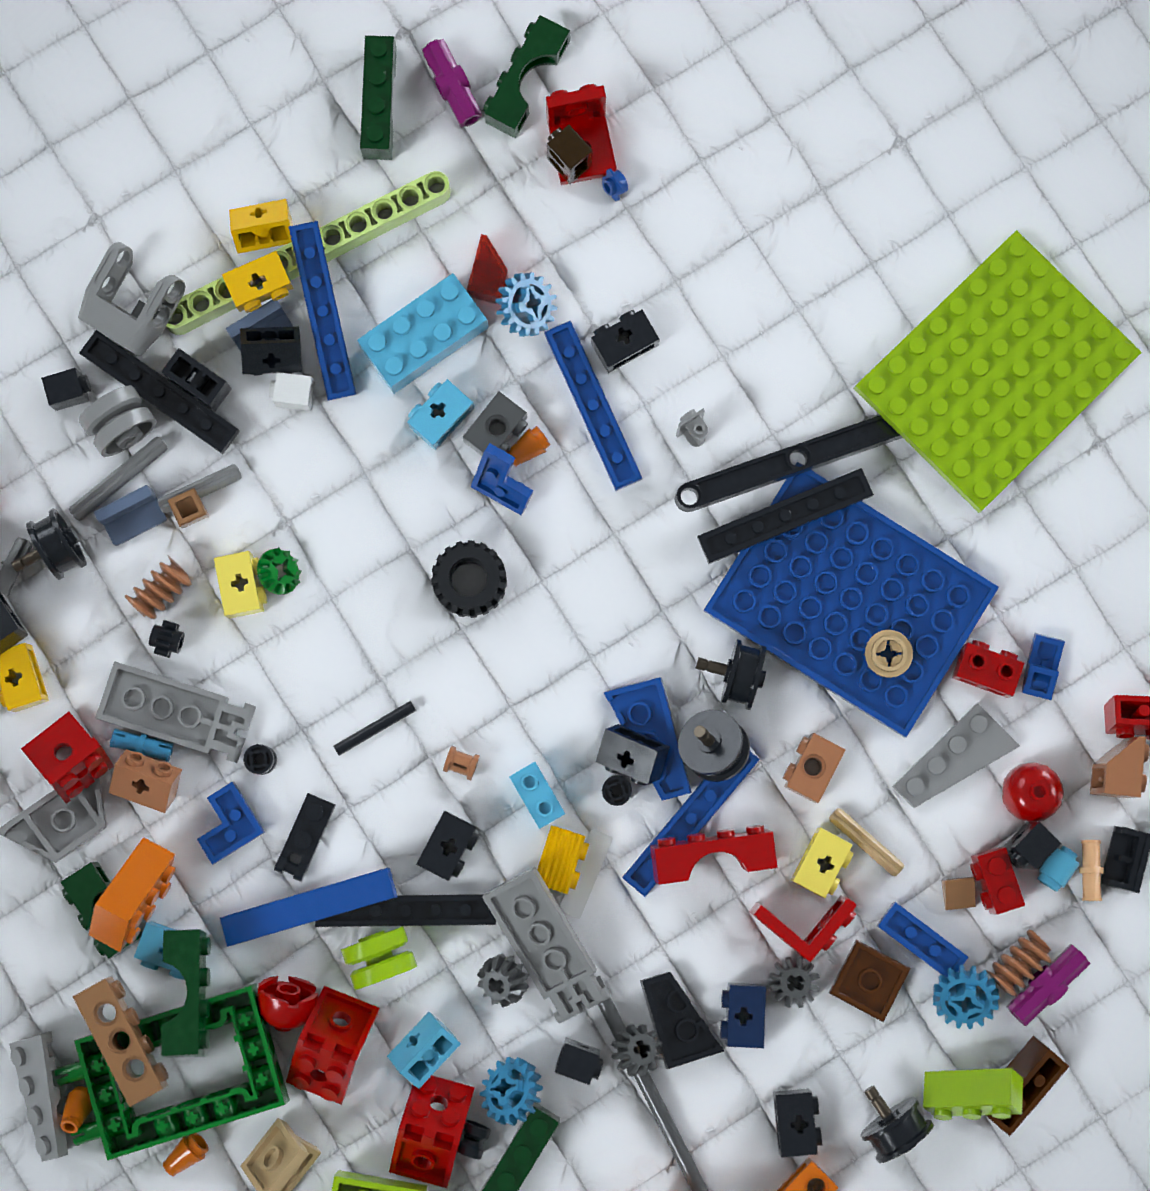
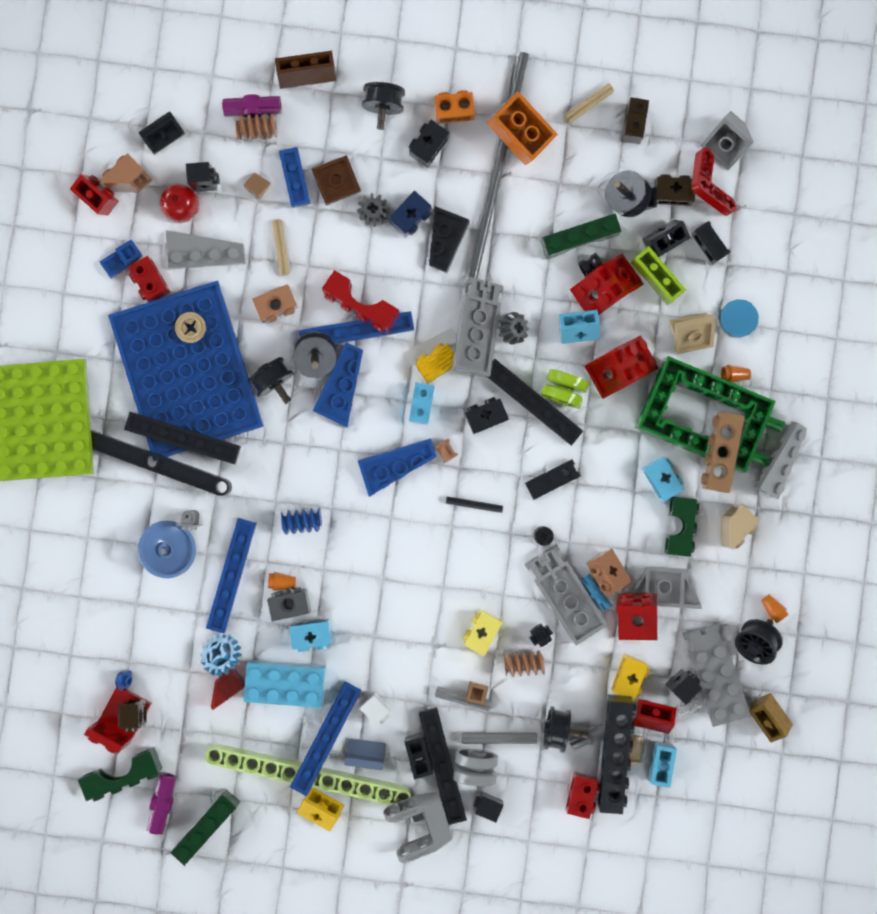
camera: 140 degrees left, 5 degrees up
(34, 966) = (736, 525): none -> tan slope
(76, 1109) = (771, 439): orange cone -> none
(131, 515) = (508, 713): sand blue panel -> none
(132, 895) = (660, 519): orange brick -> none
(186, 1032) = (688, 429): dark green arch -> none
(237, 827) = (580, 512): blue plate -> none
(242, 282) = (336, 783): yellow brick -> none
(269, 574) = (463, 625): green gear -> none
(270, 350) = (368, 739): black brick -> none
(286, 1003) = (627, 405): red cylinder -> none
(308, 907) = (578, 442): blue tile -> none
(457, 556) = (353, 550): black tyre -> none
(495, 483) = (312, 575): blue plate -> none
(511, 1091) = (553, 271): dark azure gear -> none
(513, 689) = (387, 467): none -> blue wing
(563, 536) = (302, 521): none -> blue piece
(579, 1061) = (509, 258): black brick -> none
(616, 354) = (198, 593): black brick -> none
(620, 789) = (380, 376): black wheel -> none
(623, 746) = (350, 378): brick -> none
(639, 1062) = (469, 243): dark grey gear -> none
(682, 387) = (179, 549): none -> medium blue dish
(822, 845) = (320, 257): light yellow brick -> none
(822, 934) = (340, 220): red bracket -> none
(964, 995) = (296, 133): dark azure gear -> none
(973, 1093) = (332, 83): lime brick -> none
(997, 881) = (233, 175): red brick -> none
(1058, 868) = (198, 154): medium azure brick -> none
(1091, 870) = (183, 142): light nougat pin -> none

